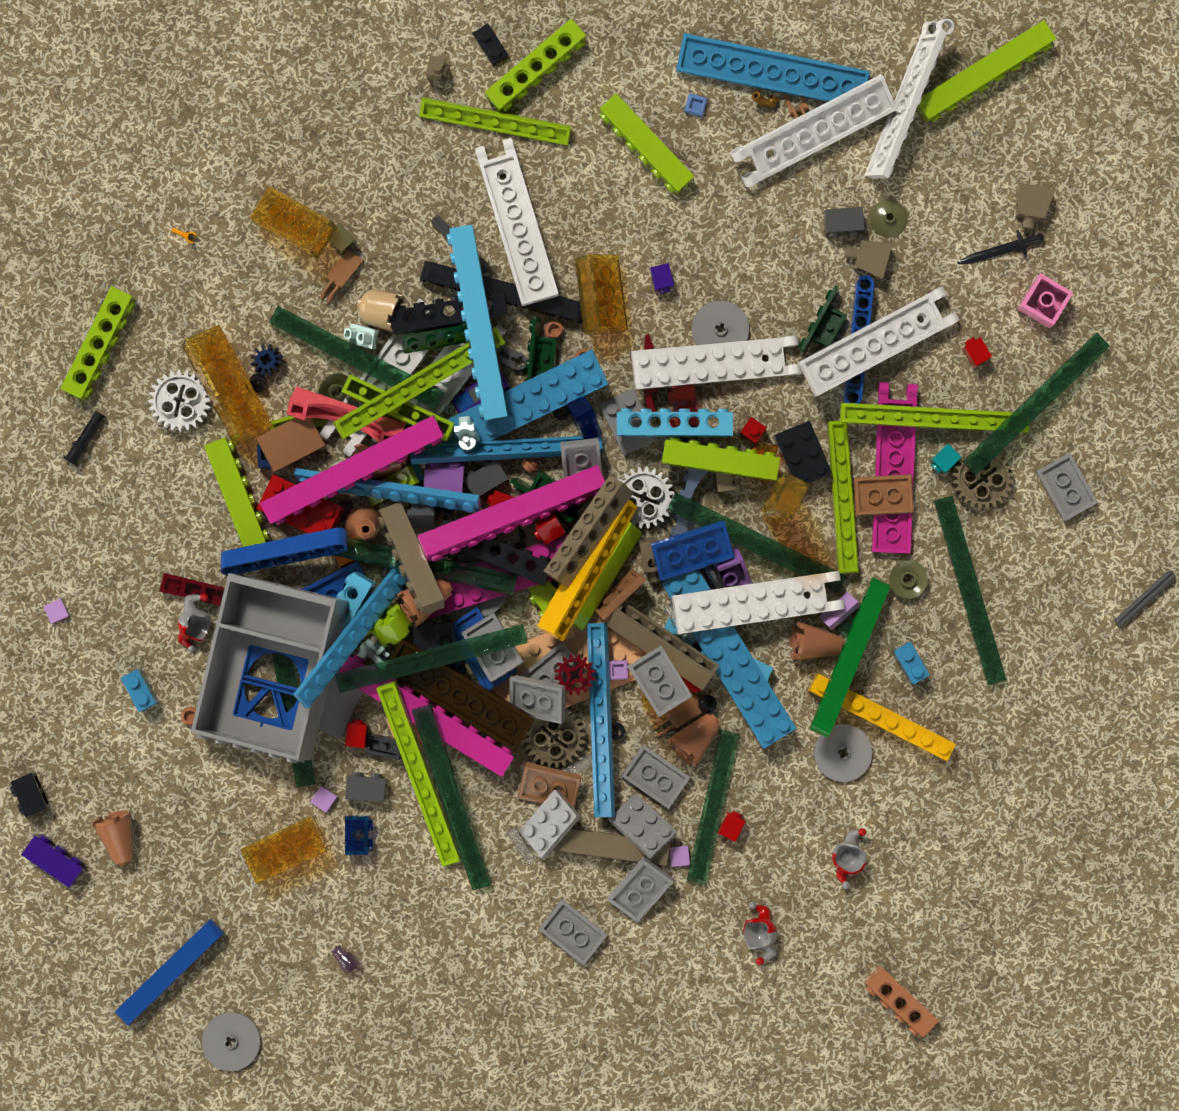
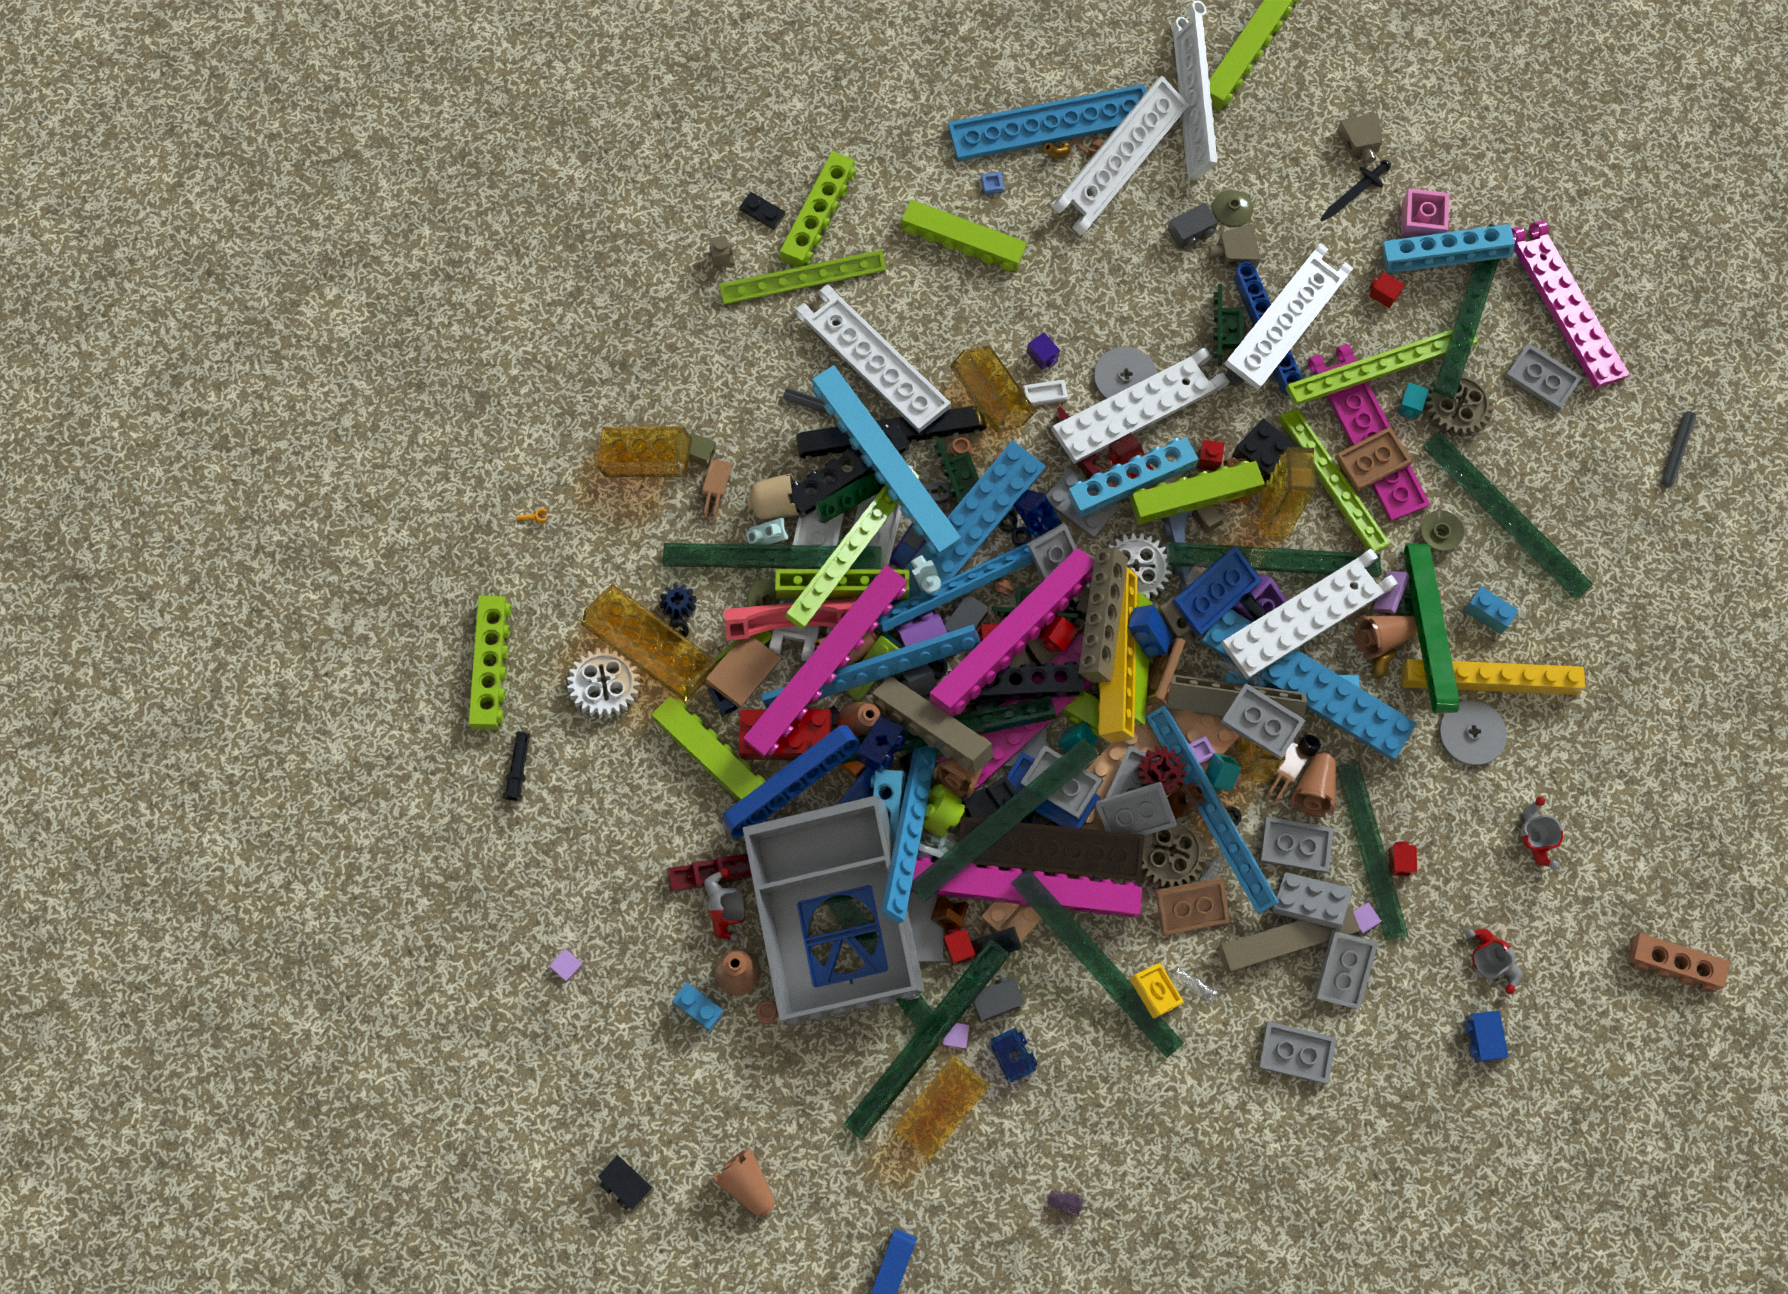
camera: 25 degrees left, 15 degrees down
(53, 860) = (685, 1245): dark purple brick -> none
(189, 675) = (740, 979): none -> nougat cone
(298, 794) = (926, 1039): none -> clear green plate
(361, 706) = (949, 914): none -> reddish brown panel
(368, 547) = (881, 733): none -> clear blue brick
(418, 773) = (1049, 953): lime plate -> none
(488, 837) = (1156, 990): none -> yellow tile
(526, 614) = (1075, 734): none -> teal panel
(550, 824) = (1215, 943): light grey plate -> none
(566, 423) = (1020, 530): none -> black axle
(582, 705) = (1178, 803): none -> reddish brown brick
(622, 559) = (1150, 630): none -> blue brick
(625, 694) = (1223, 771): none -> teal brick
(646, 314) = (1046, 392): none -> white tile
(722, 987) = (1486, 1036): none -> blue brick
(799, 665) = (1382, 663): none -> pearl gold arm
(1050, 349) = (1448, 248): none -> medium azure brick
(1122, 434) = (1568, 306): none -> hinge

